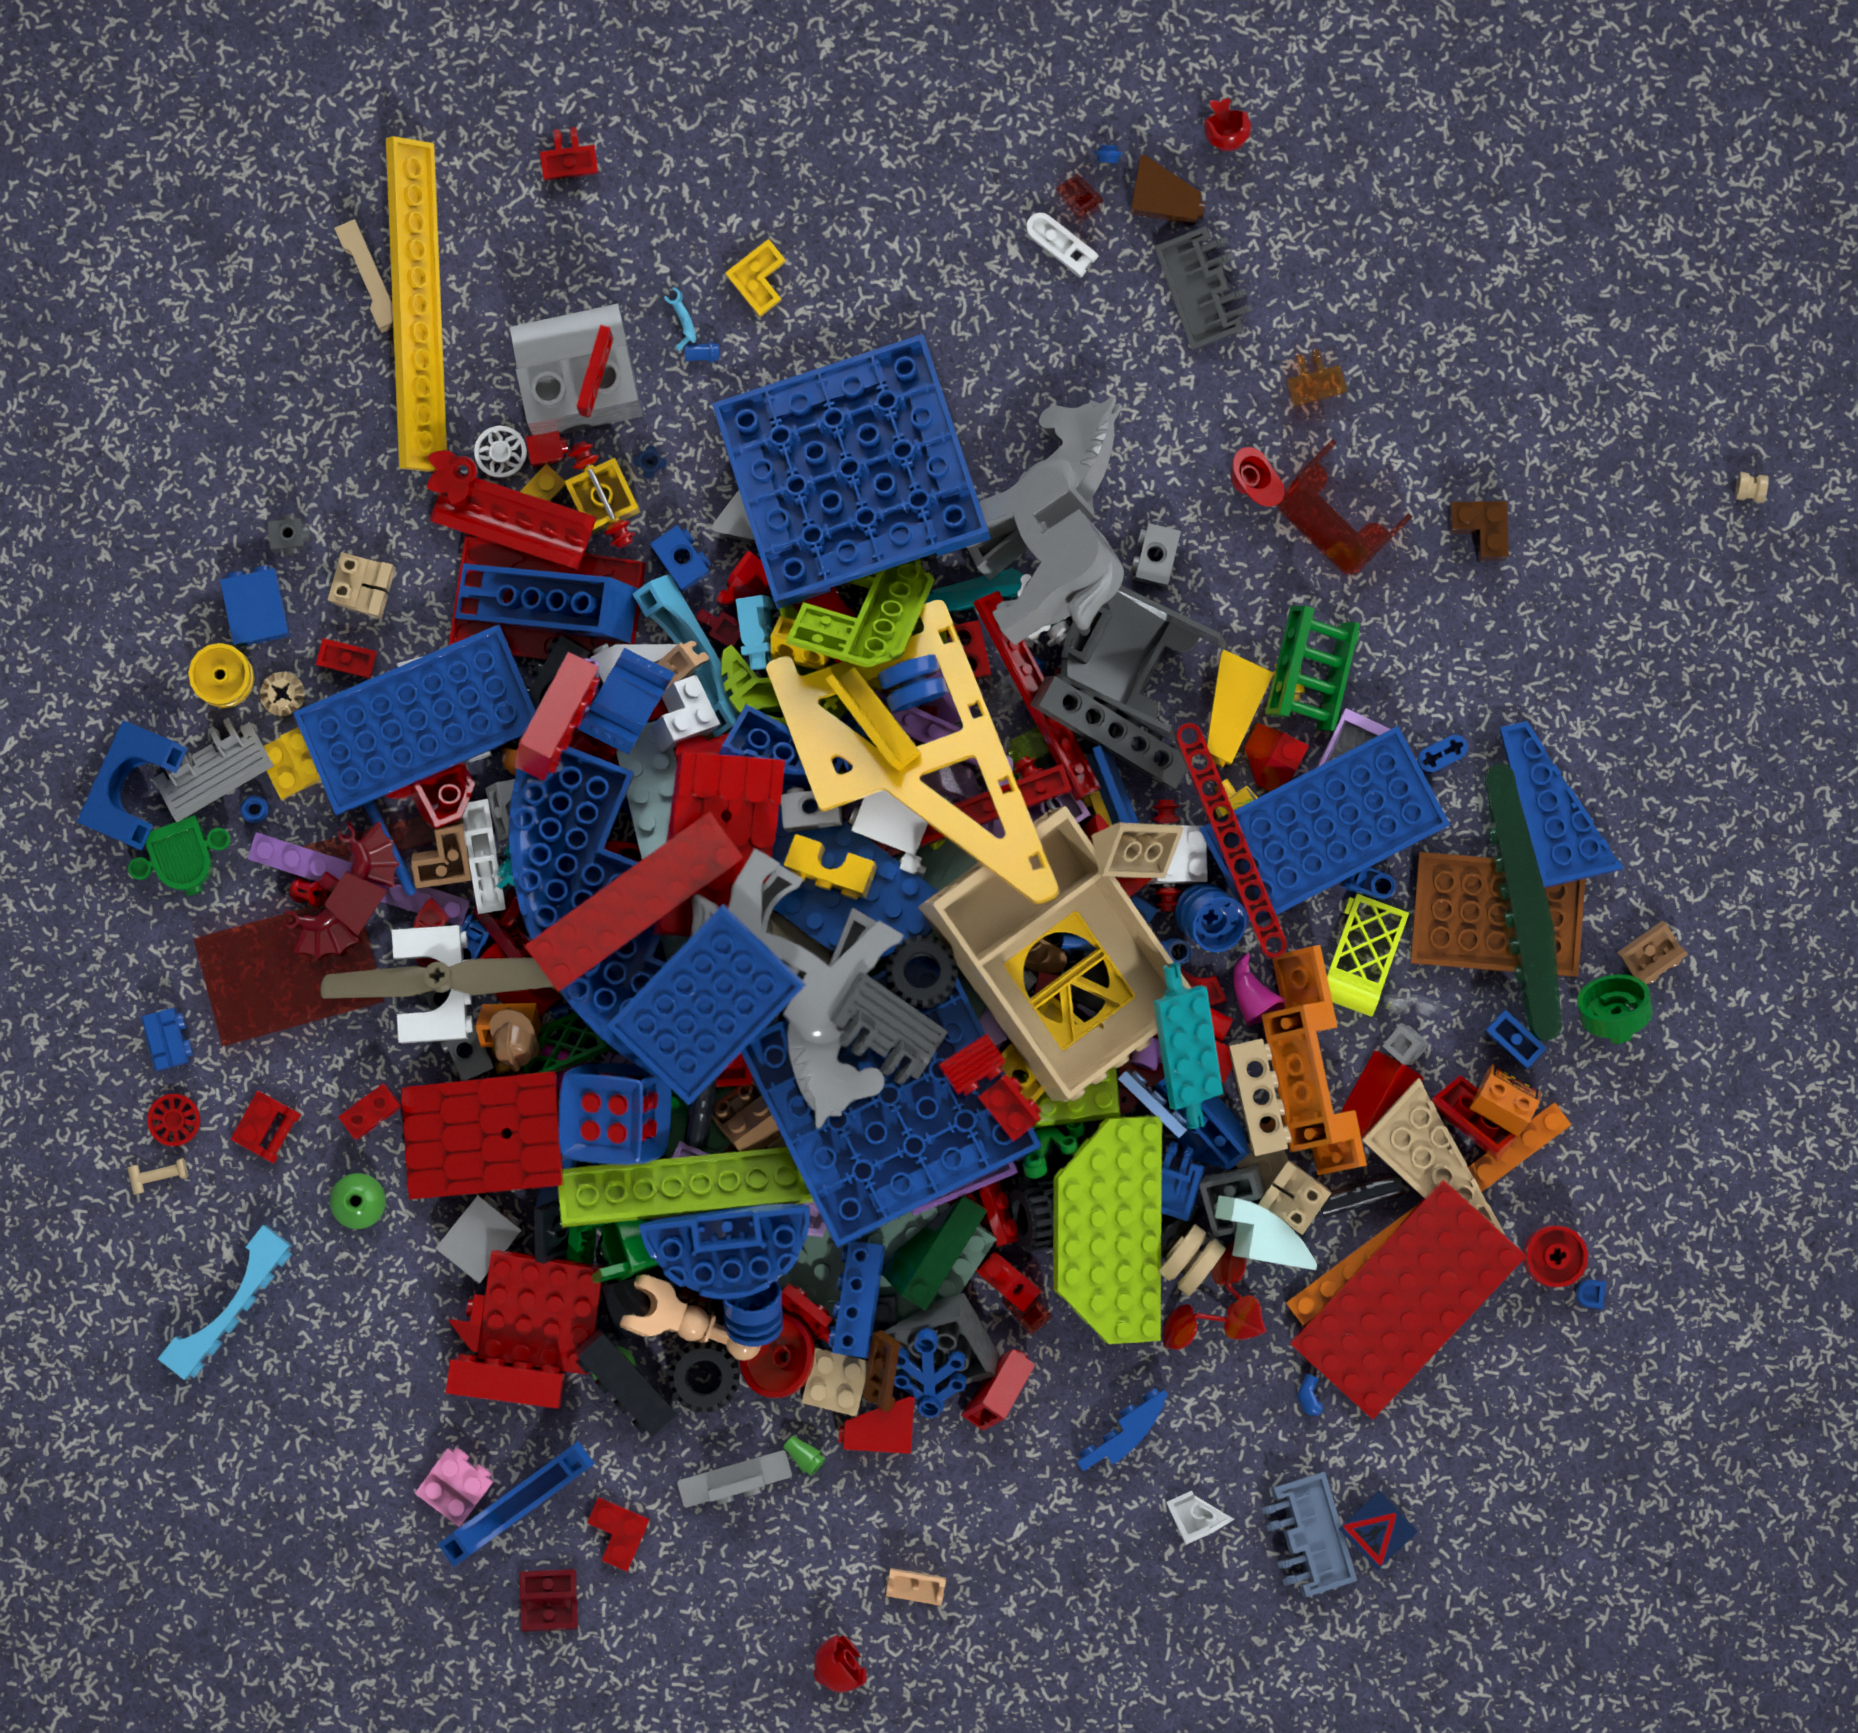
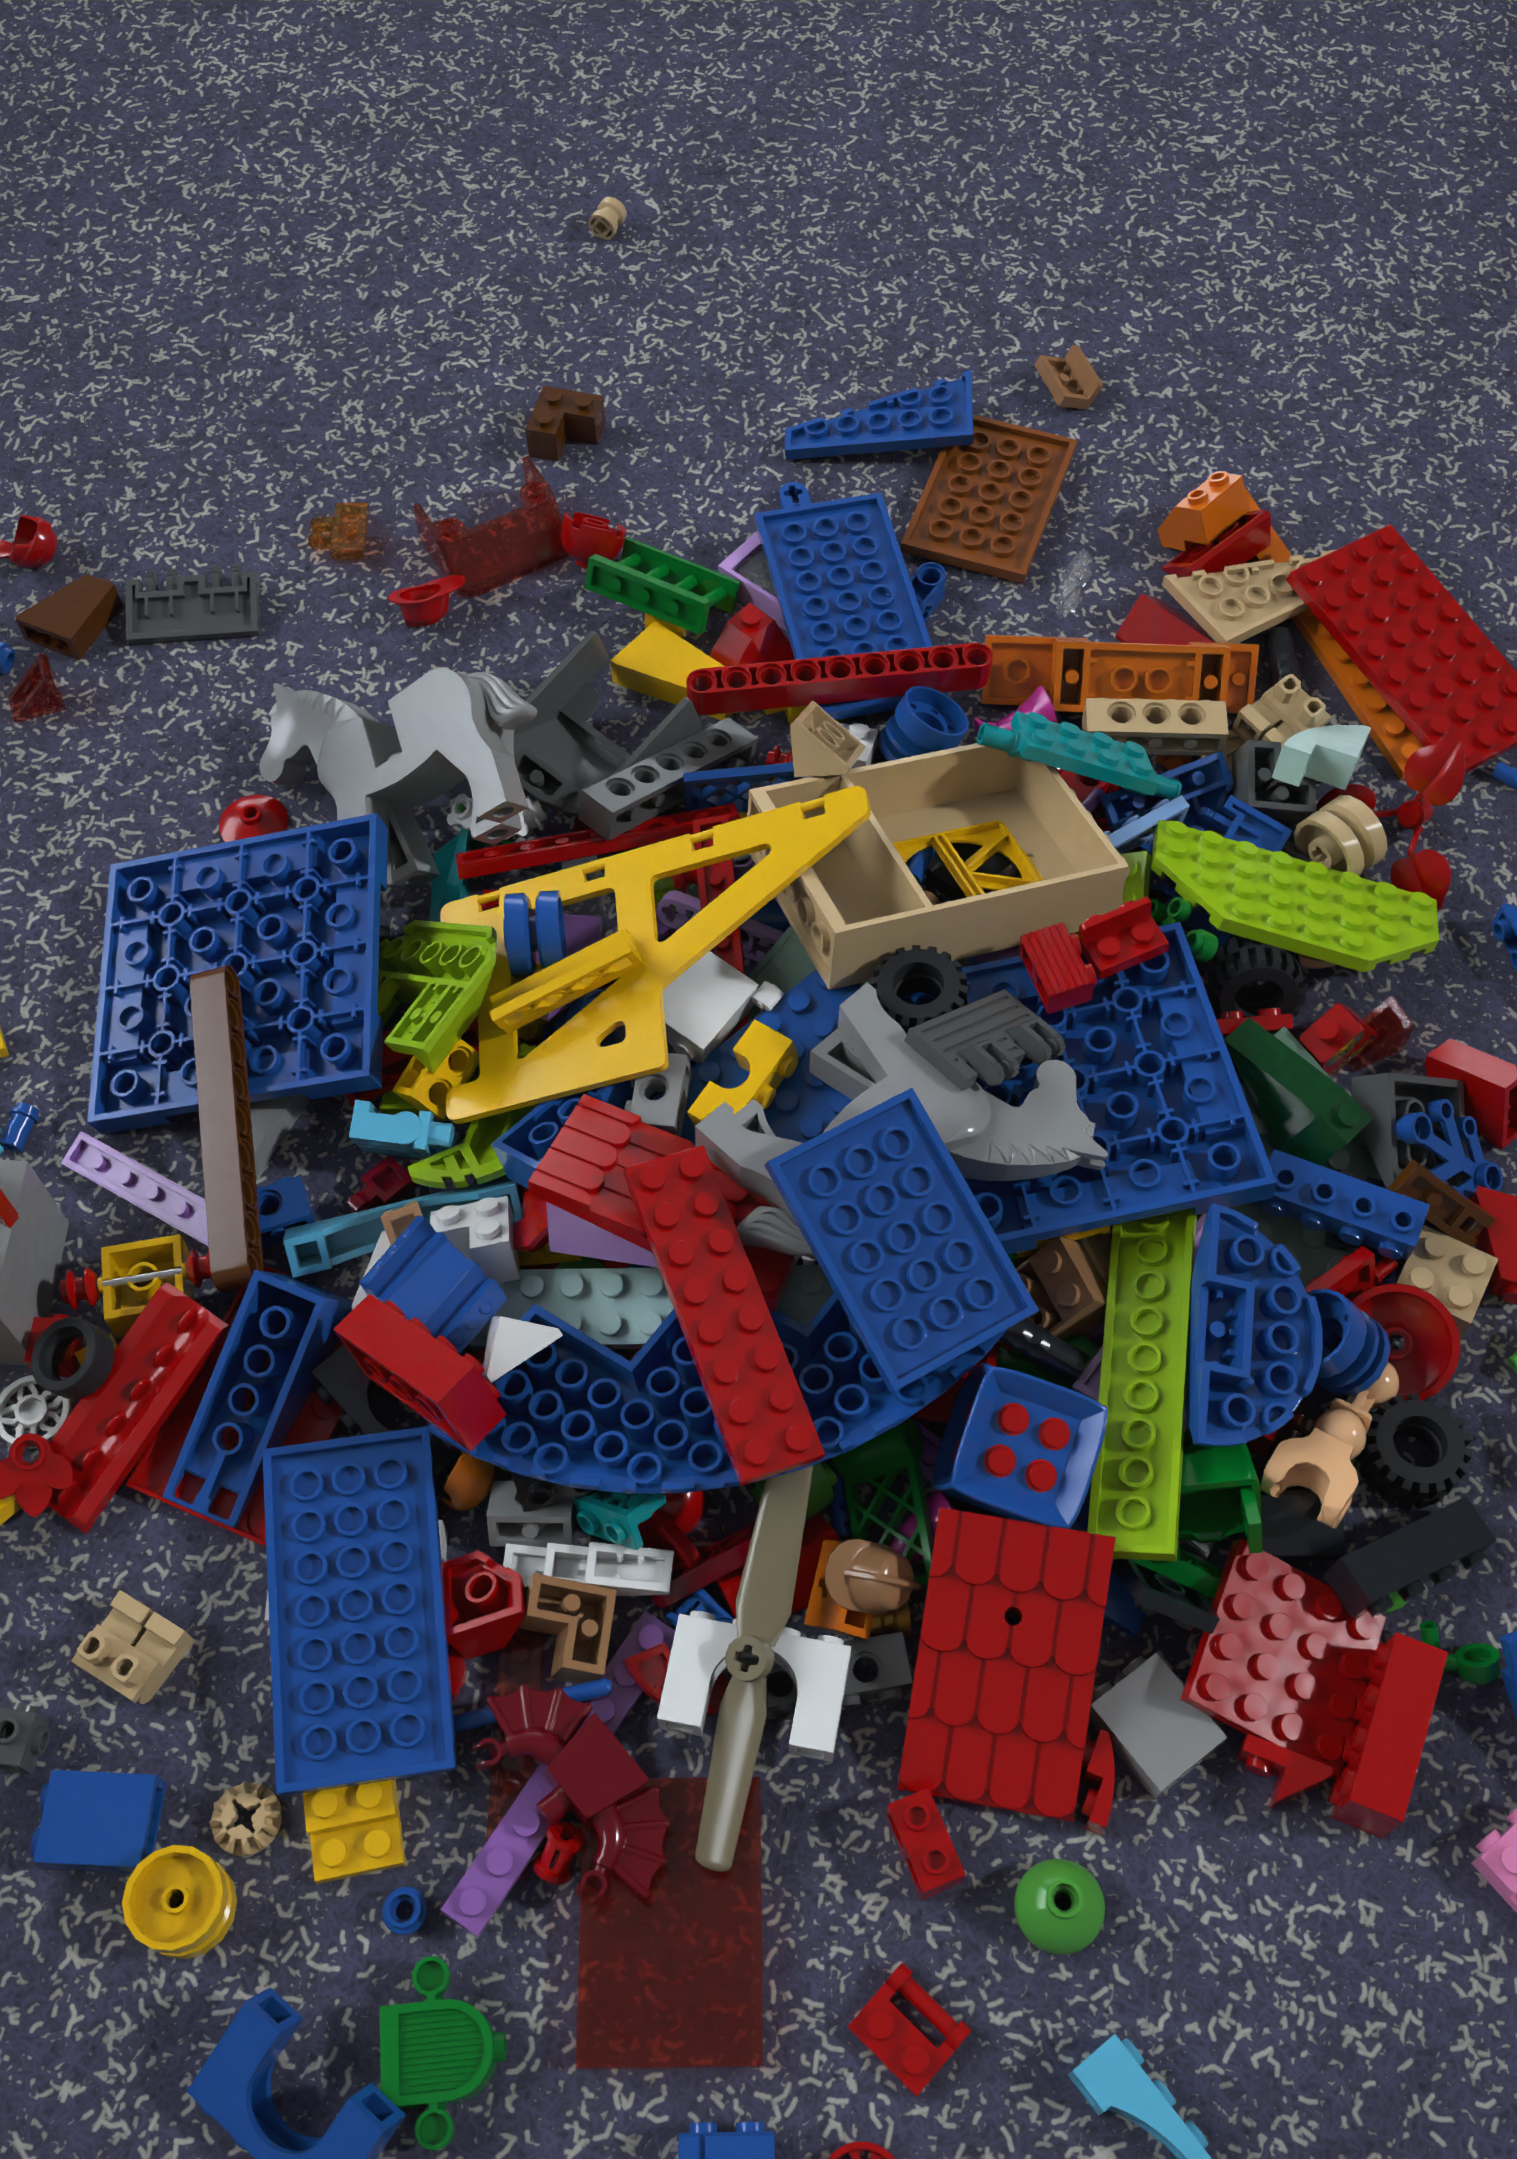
camera: 70 degrees left, 25 degrees down
(214, 771) = (328, 1961): light grey hinge -> none
(346, 658) = (230, 1702): red plate -> none
(445, 1208) = (1100, 1772): none -> red slope
(520, 457) = (53, 1343): none -> black tyre
(572, 1430) = (1473, 1662): none -> green plate
(594, 770) = (512, 1343): none -> white slope
(649, 454) = (127, 1215): dark blue plate -> none
(671, 474) = (139, 1185): none -> medium lavender tile
(718, 512) = (225, 1128): none -> beam
(746, 580) = (327, 1130): red slope -> none
(1008, 430) = (268, 818): none -> red dish
(1060, 242) = (77, 725): white plate -> none
(1353, 594) = (590, 535): none -> red cylinder
(1356, 991) = (1048, 621): neon yellow piece -> none
(1406, 1044) = (1118, 592): light grey brick -> none
(1514, 1039) = (1135, 500): blue brick -> none
(1526, 905) = (994, 453): clear green piece -> none
(1571, 1252) = (1391, 501): red wheel -> none
(1591, 1293) = (1433, 504): blue tile -> none
(1605, 1010) = (1130, 397): green piece -> none

